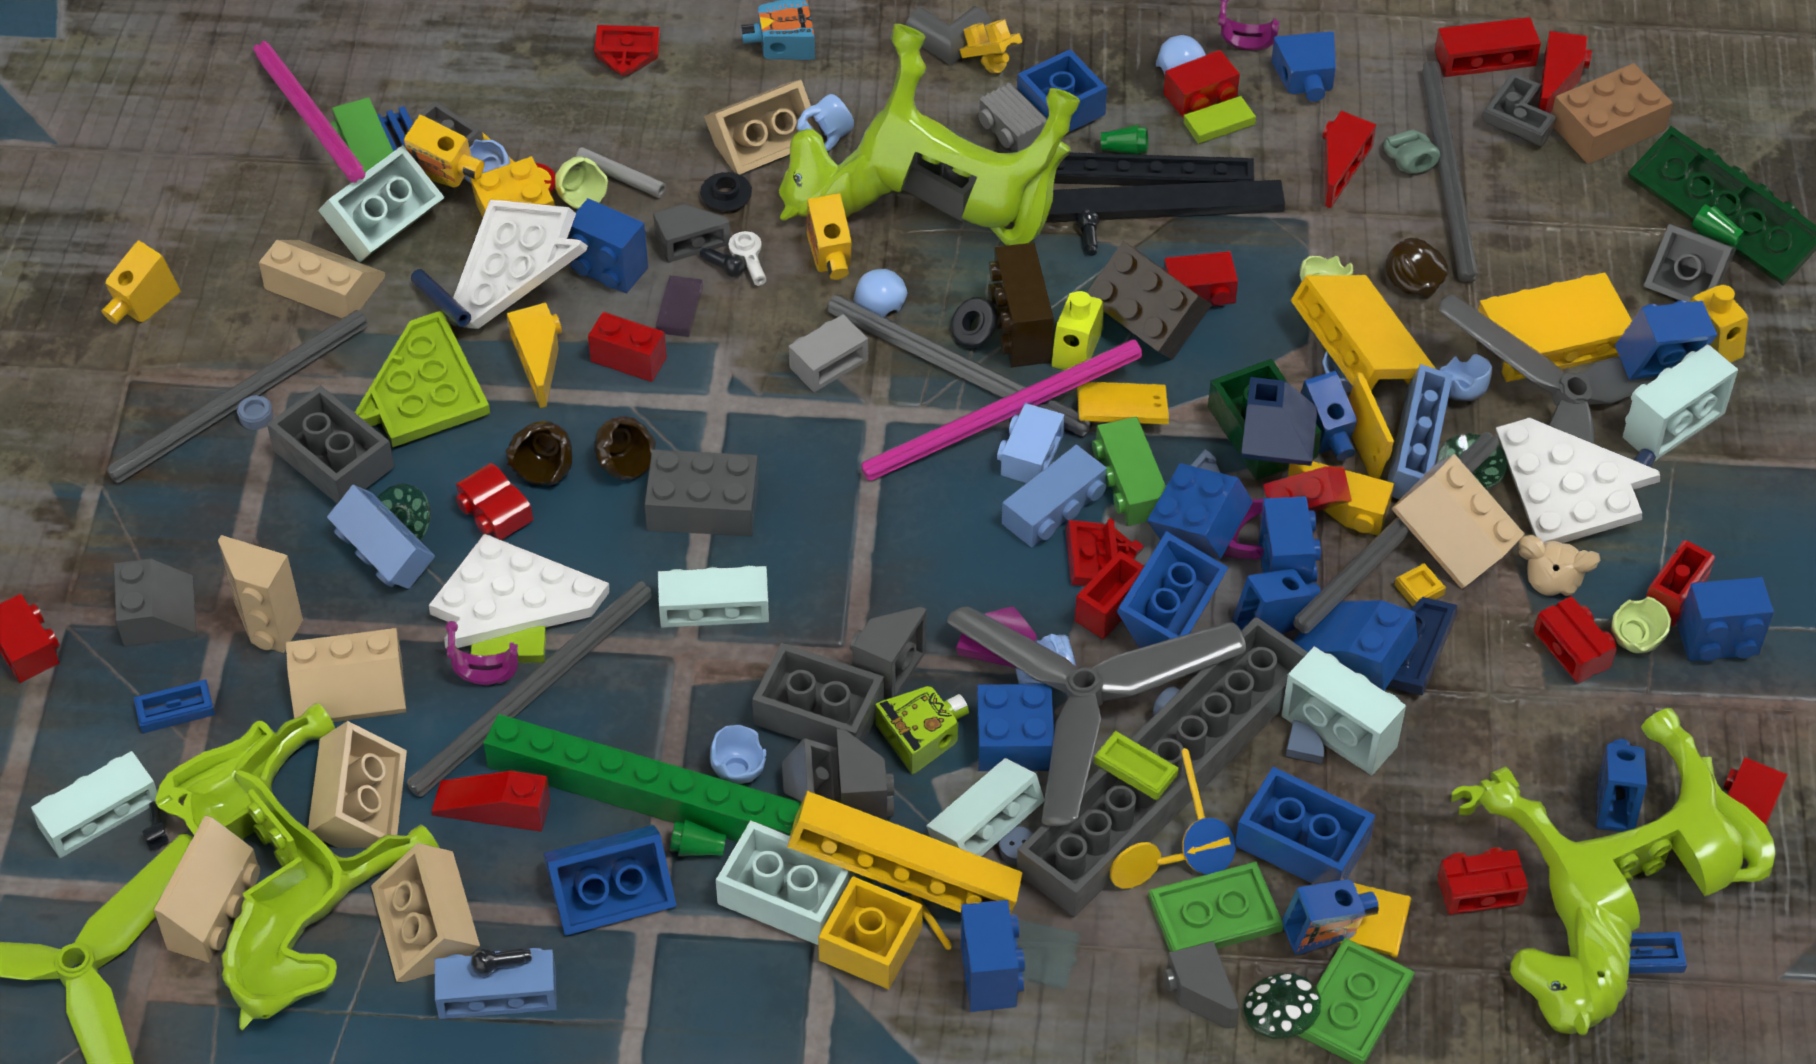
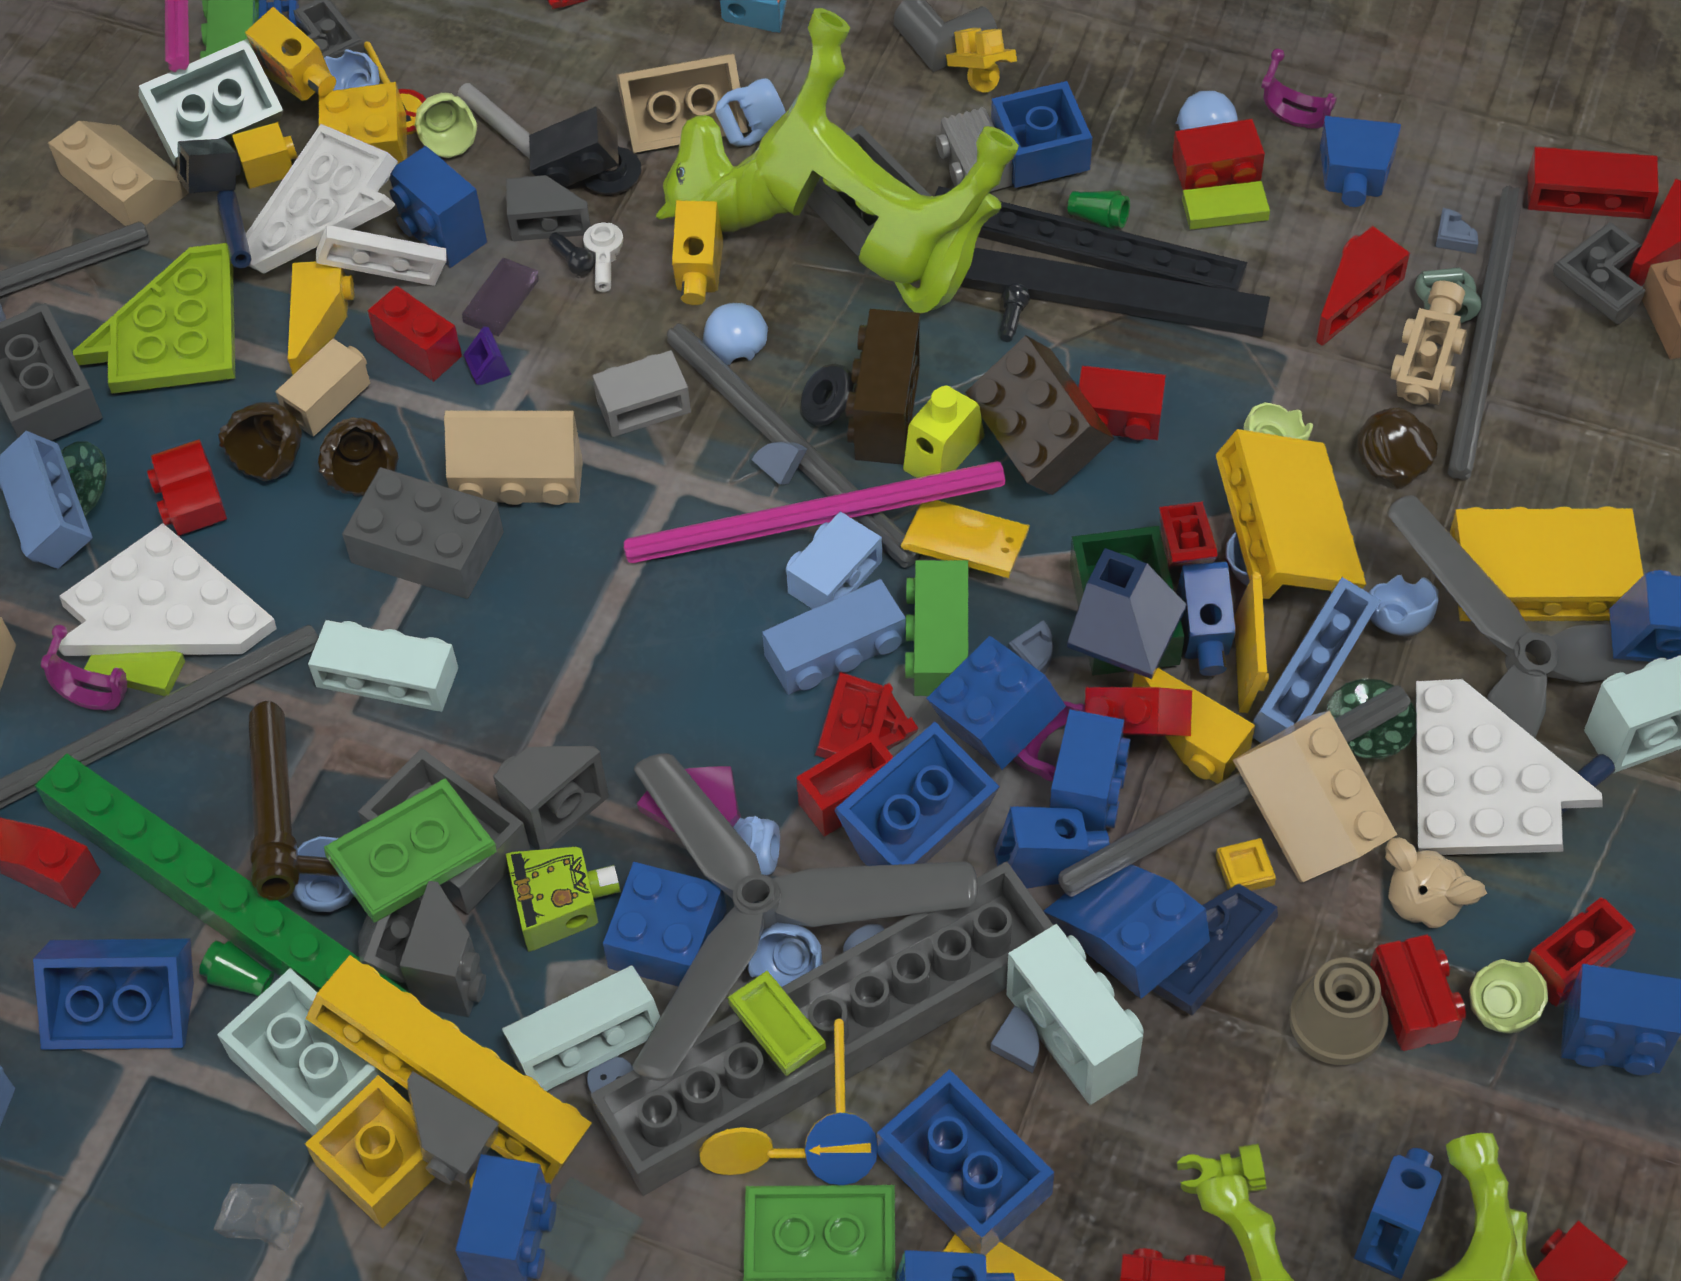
camera: 20 degrees right, 5 degrees up
(398, 253) = (207, 165): none -> black brick
(438, 237) = (264, 154): none -> yellow brick
(574, 399) = (324, 386): none -> tan brick
(578, 292) = (380, 255): none -> white plate
(690, 354) = (486, 358): none -> dark purple slope
(696, 739) = (274, 849): none -> dark brown cylinder
(697, 178) = (574, 148): none -> black brick
(753, 417) = (514, 455): none -> tan slope
(791, 1001) = (259, 1213): none -> clear bracket
(807, 713) = (405, 847): none -> bright green tile
(926, 895) = (448, 1131): none -> dark grey slope
(957, 378) = (780, 460): none -> sand blue tile
(1119, 716) = (786, 953): none -> light blue hair
(1297, 360) = (1187, 535): none -> red slope
(1399, 105) = (1456, 233): none -> sand blue tile
(1417, 187) = (1425, 369): none -> tan brick
(1528, 663) = (1335, 1028): none -> dark tan piece

